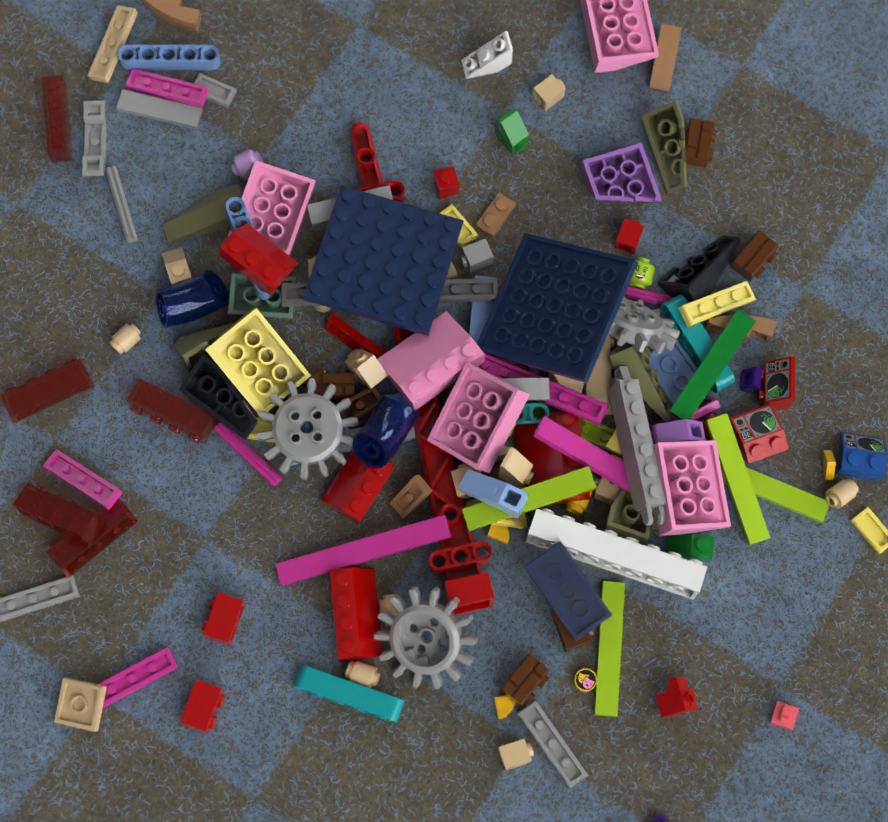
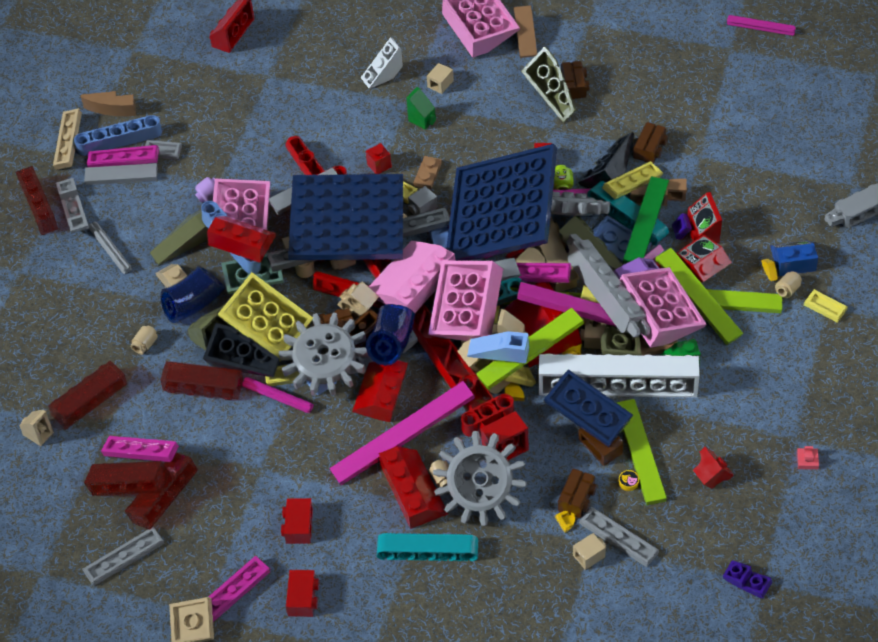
camera: 10 degrees left, 20 degrees down
(362, 674) = (434, 526): tan brick -> none
(411, 496) = (429, 383): medium nougat plate -> none
(620, 176) = (519, 114): medium lavender wedge -> none

